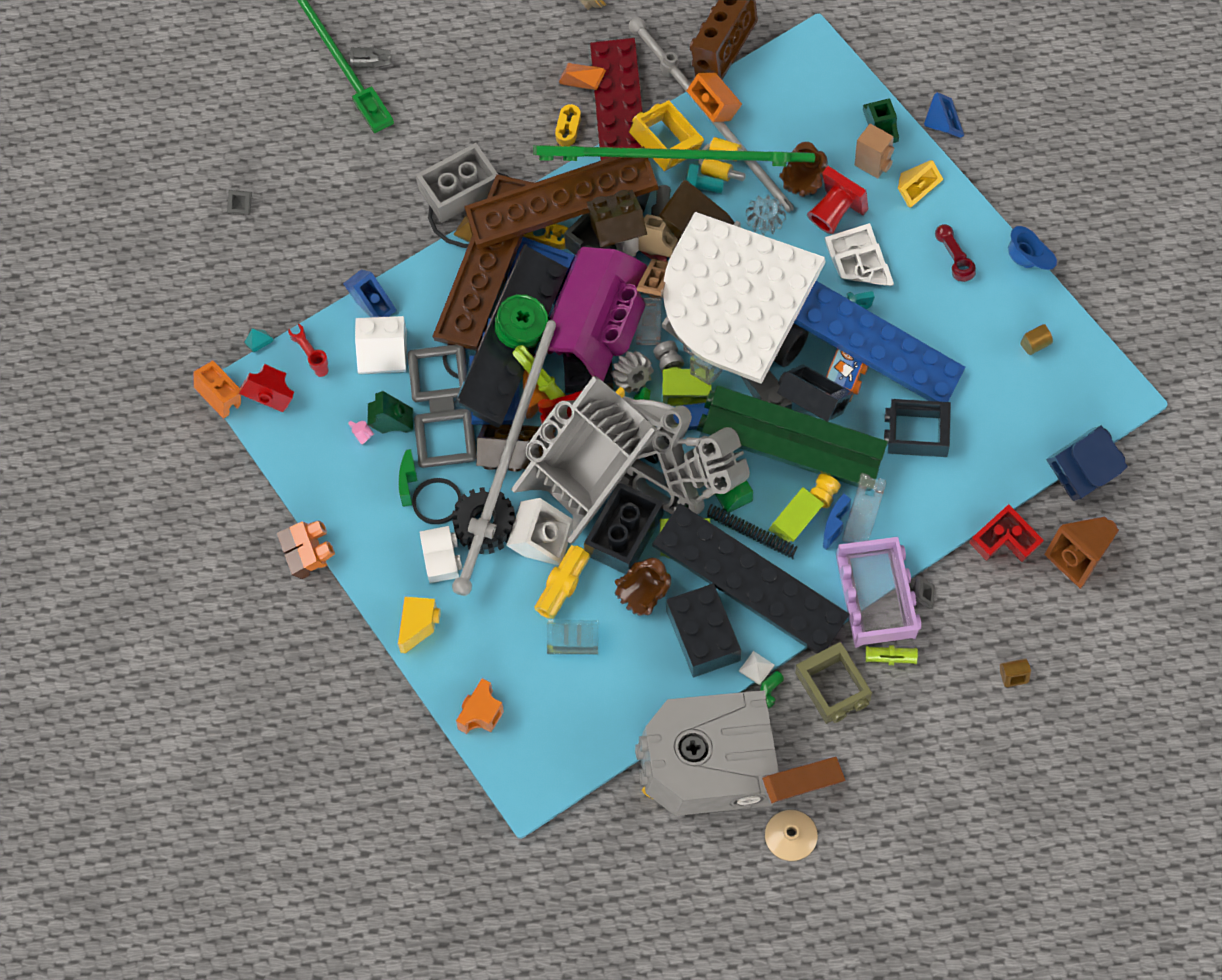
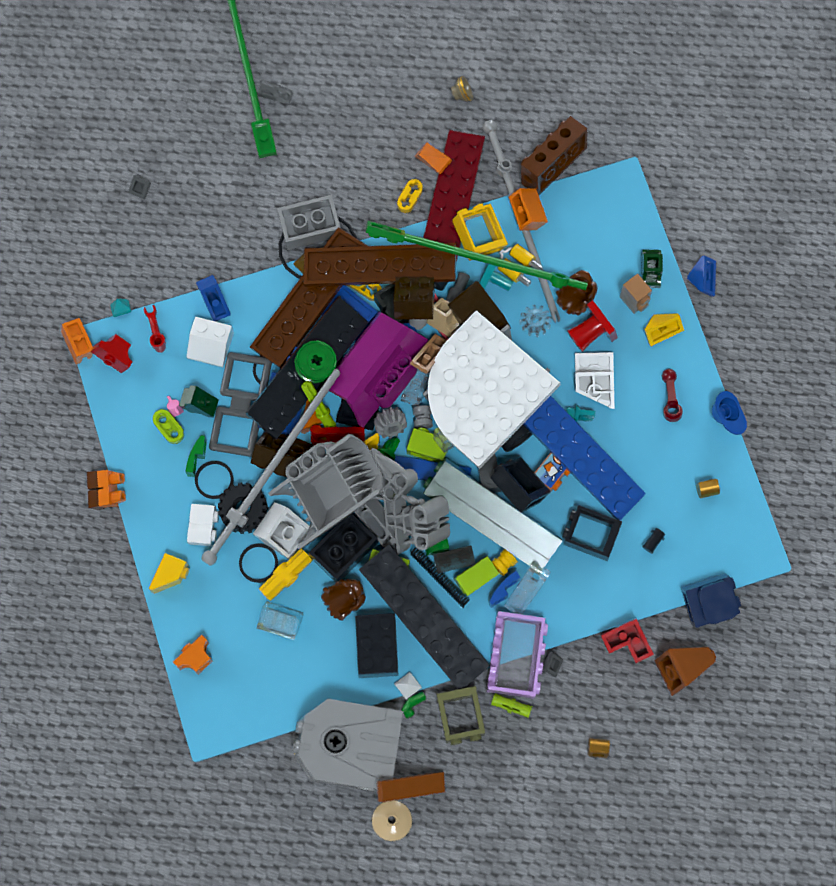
camera: 15 degrees right, 10 degrees up
(362, 456) = (168, 427): none -> lime plate
(508, 564) = (246, 550): none -> black piece
(763, 502) = (454, 559): none -> clear smoke bracket
(995, 413) = (653, 541): none -> black pin

